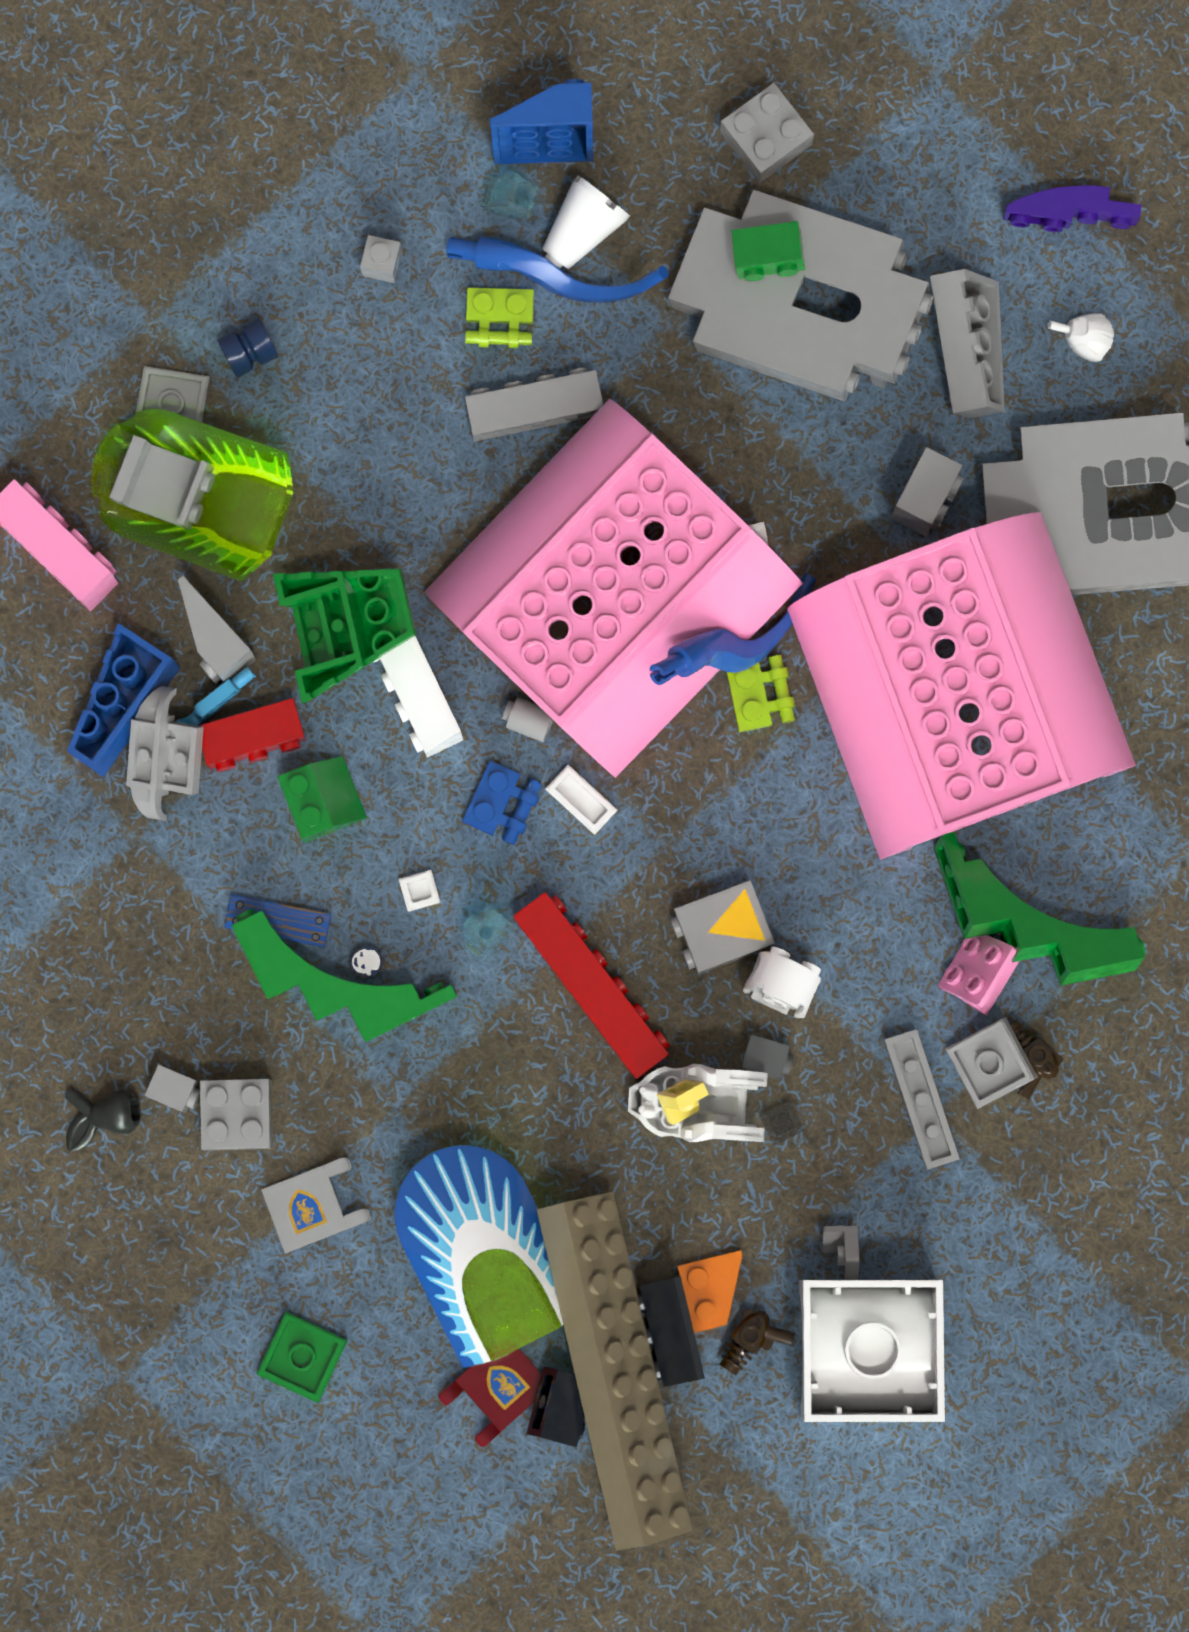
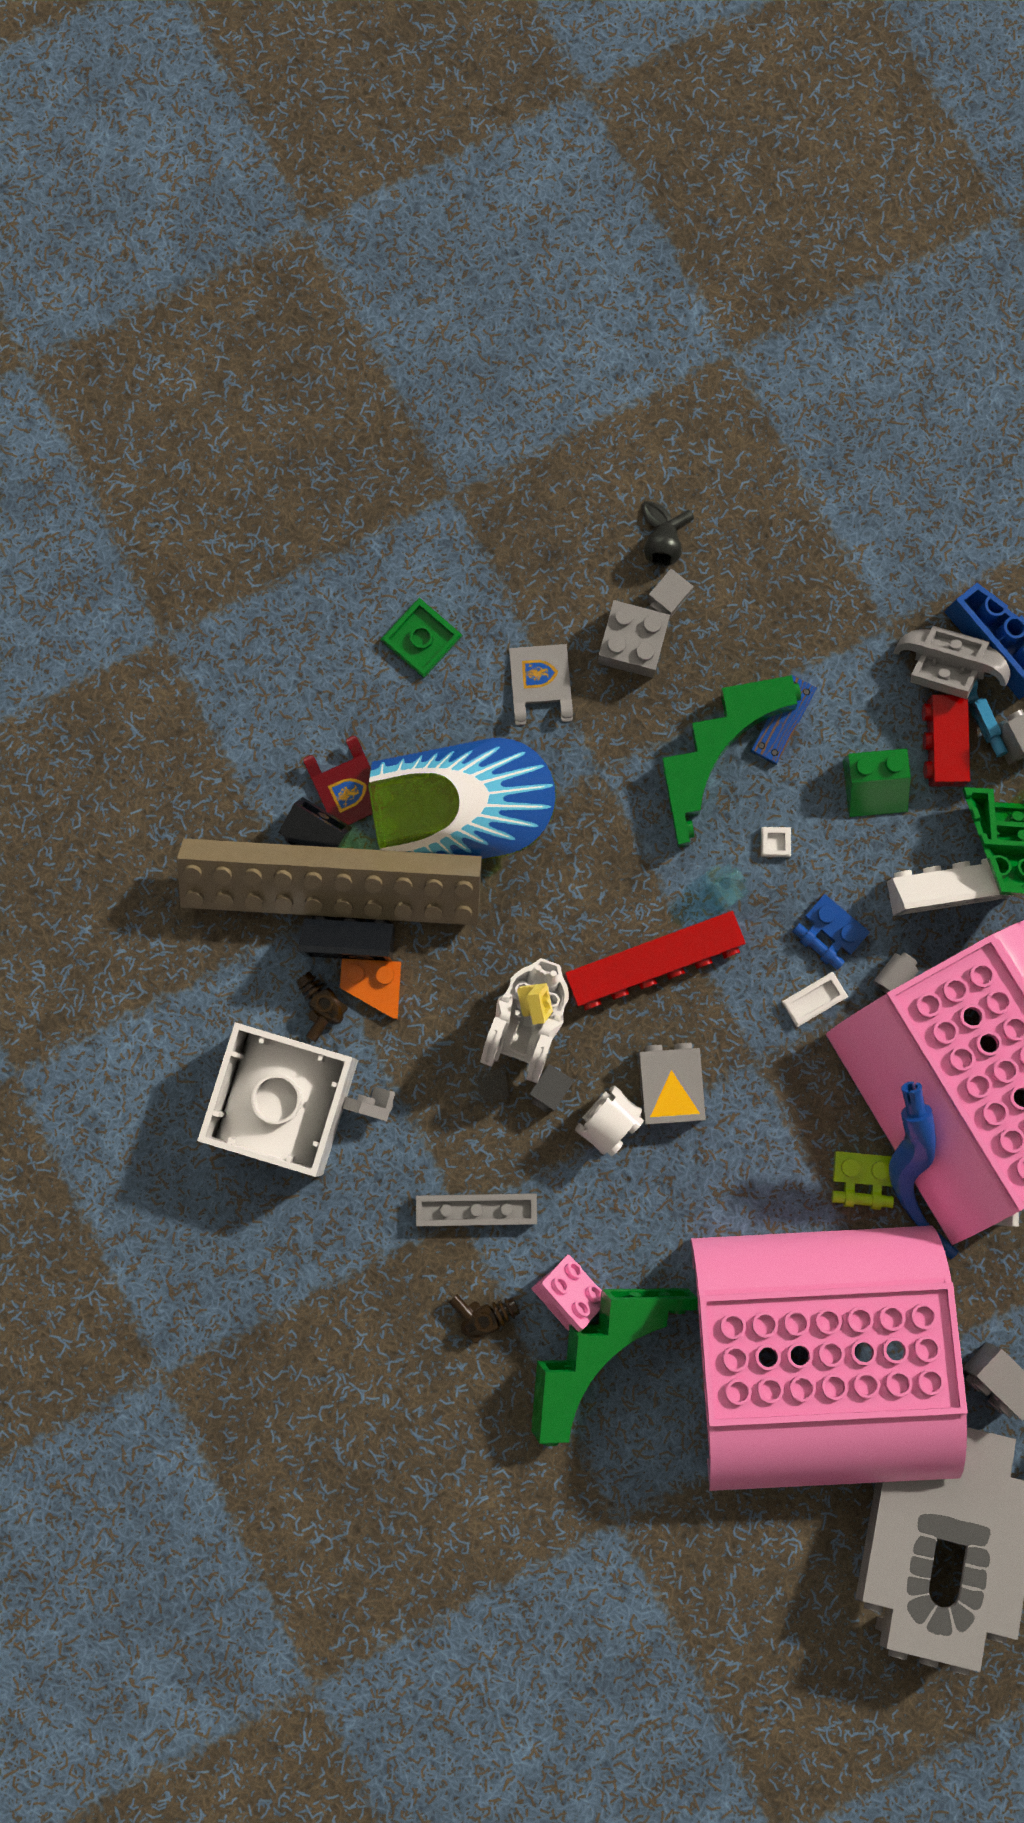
camera: 105 degrees right, 0 degrees up
(366, 962) = (728, 781): tile -> none
(991, 1062) = (489, 1279): light grey tile -> none

